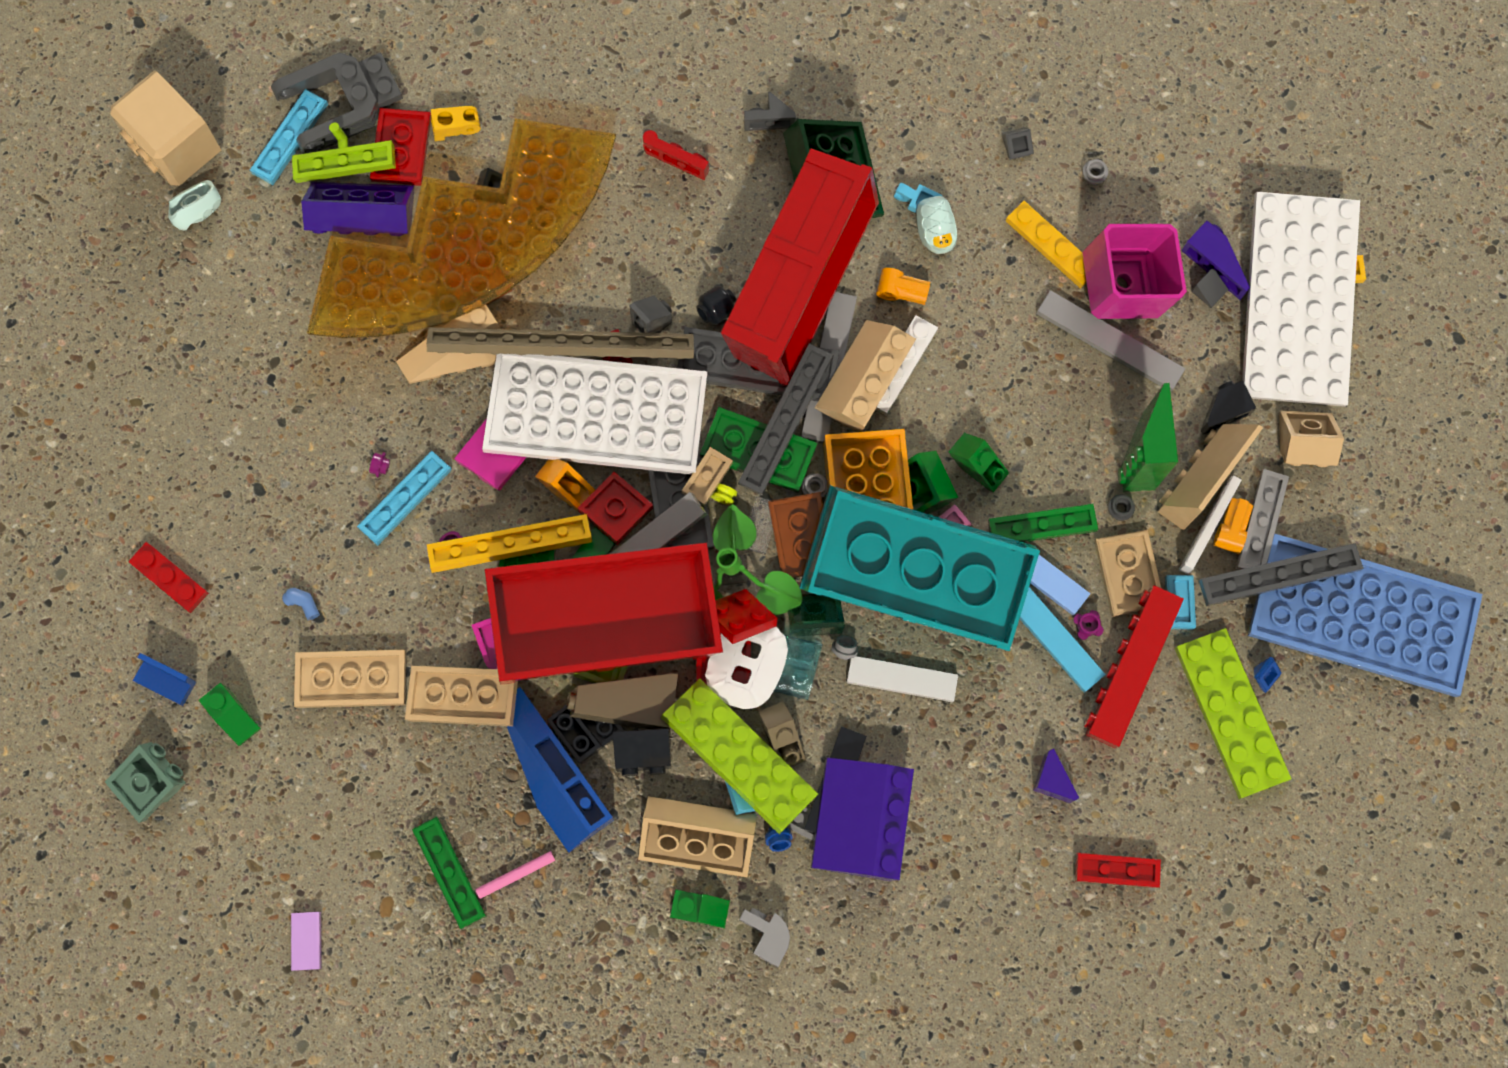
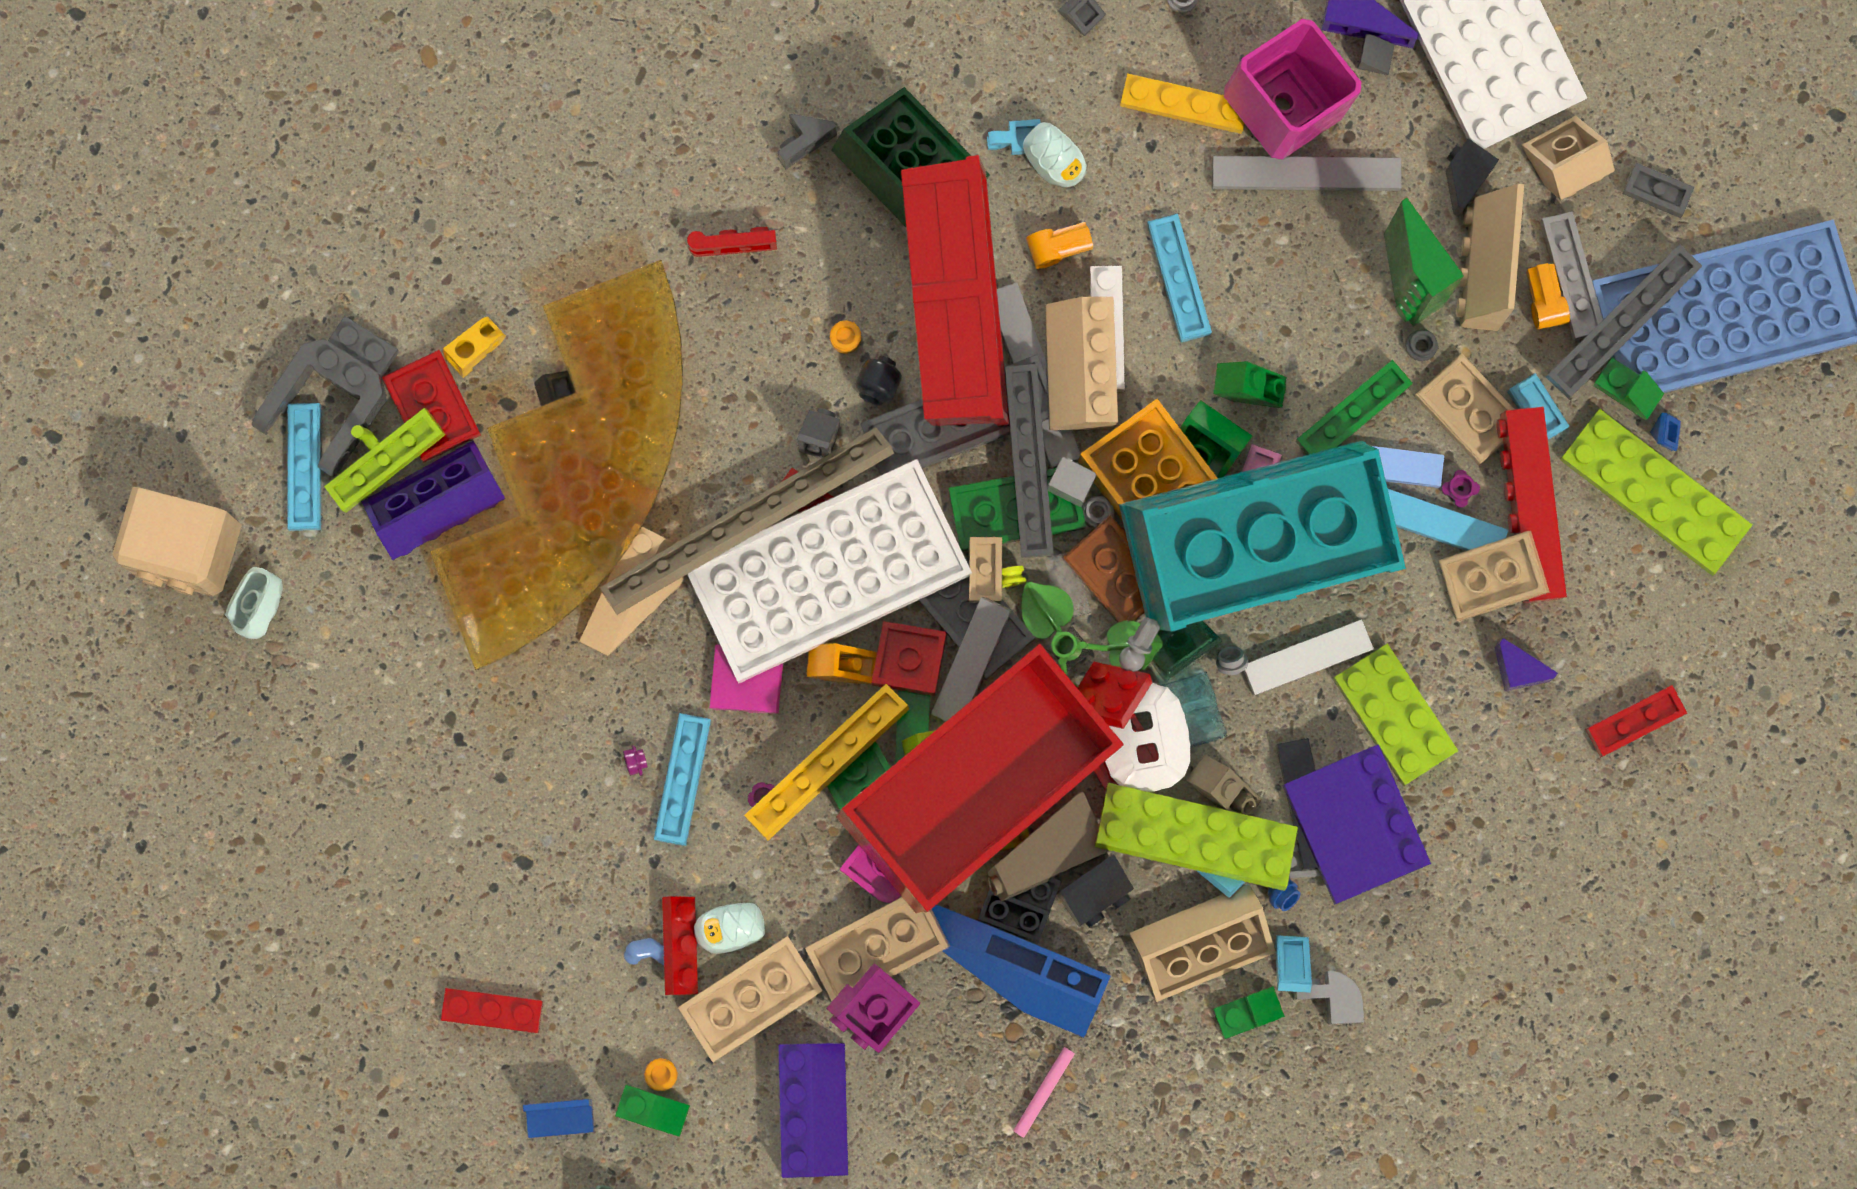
camera: 30 degrees left, 5 degrees up
(254, 694) = (661, 1074): none -> light orange tile
(325, 610) = (679, 945): none -> red plate
(341, 784) = (813, 1110): none -> dark purple slope
(369, 620) = (729, 927): none -> light aqua piece
(429, 737) = (872, 1009): none -> magenta plate
(449, 873) = (976, 1131): green tile -> none
(713, 264) = (845, 337): none -> light orange tile
(753, 892) = (1293, 964): none -> medium azure tile
(773, 599) = (1133, 657): none -> light grey axle
(806, 450) = (1071, 481): none -> light grey panel
(941, 758) = (1395, 714): none -> lime plate
(974, 360) = (1179, 278): none -> medium azure tile
(1074, 700) = (1494, 576): none -> tan tile
(1209, 525) = (1522, 316): white tile -> none
(1256, 625) = (1632, 390): none -> green slope
(1362, 499) = (1658, 190): none -> dark grey plate

